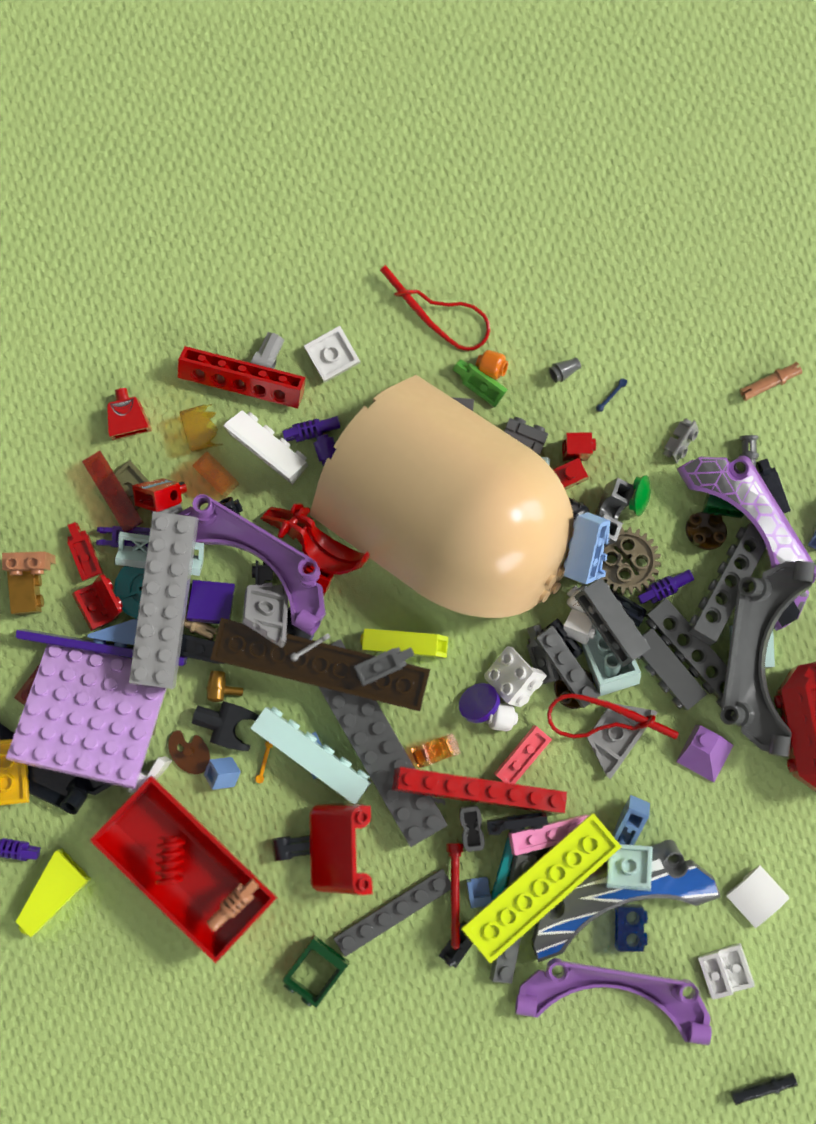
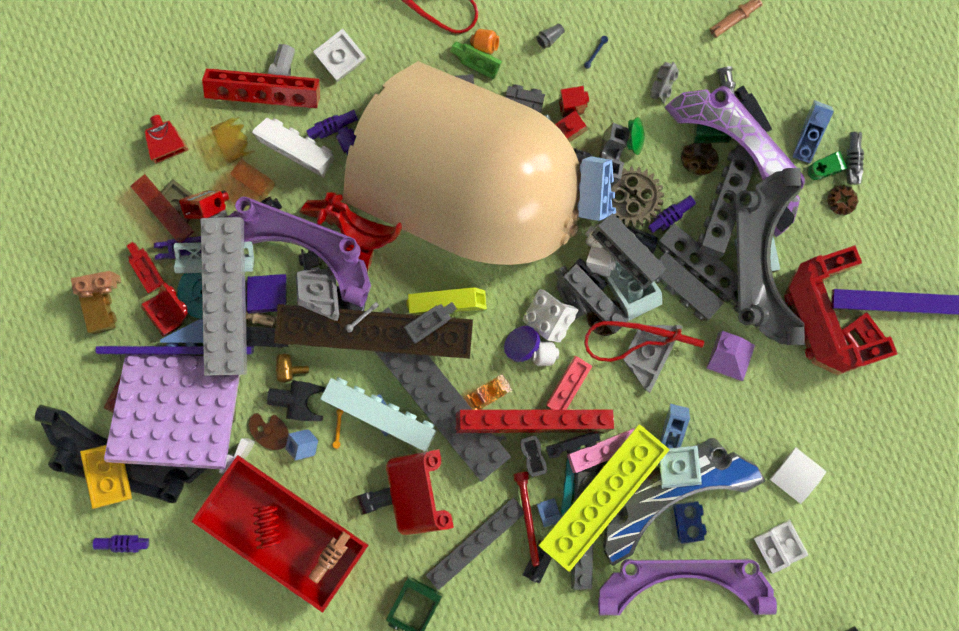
camera: 10 degrees left, 0 degrees up
(55, 888) = (167, 573): neon yellow slope -> none

